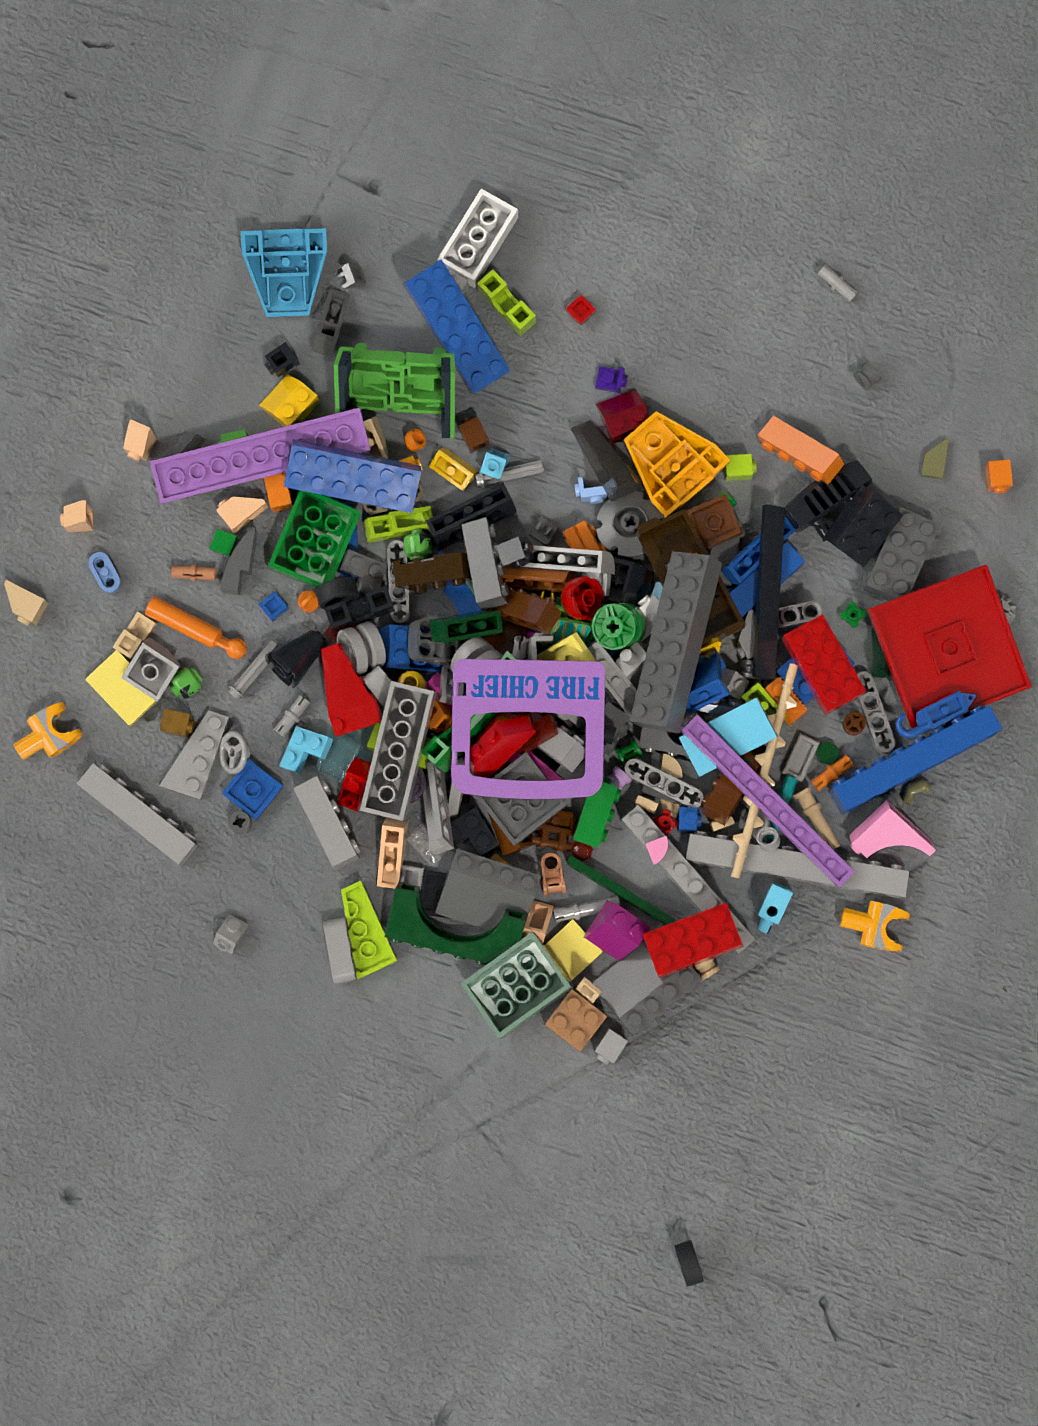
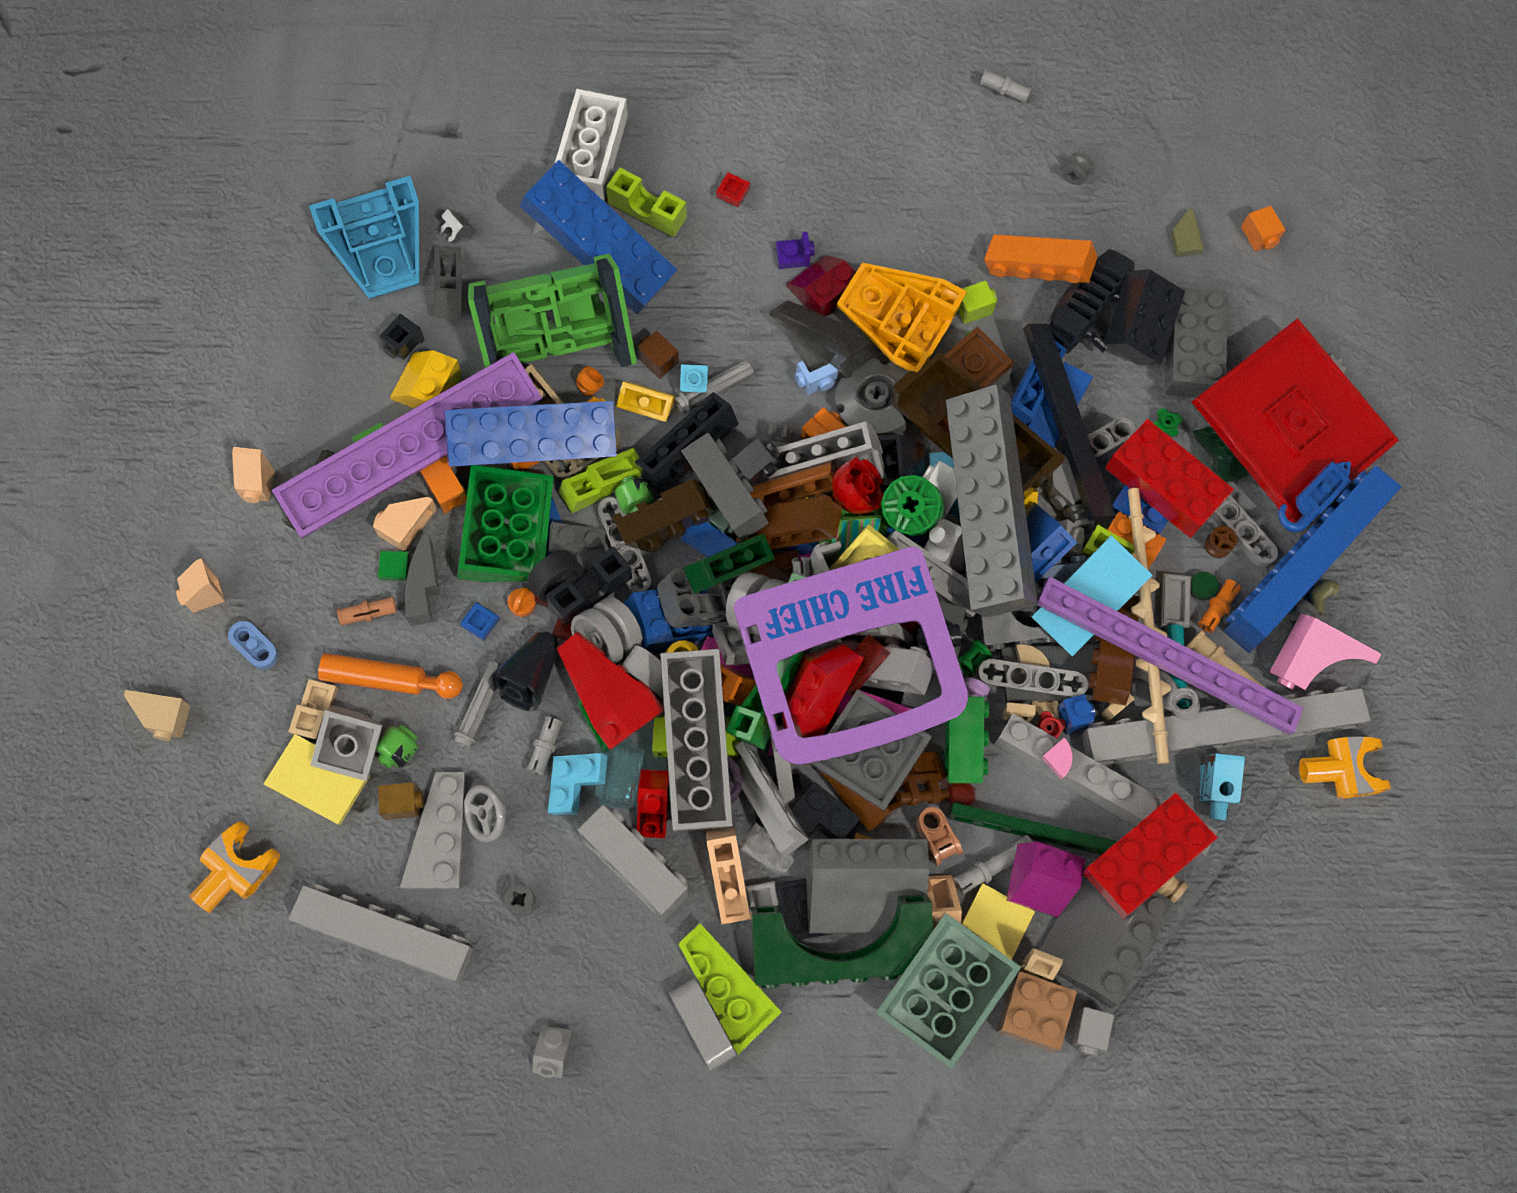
camera: 30 degrees left, 10 degrees down
(252, 790) = (523, 854): blue plate -> none

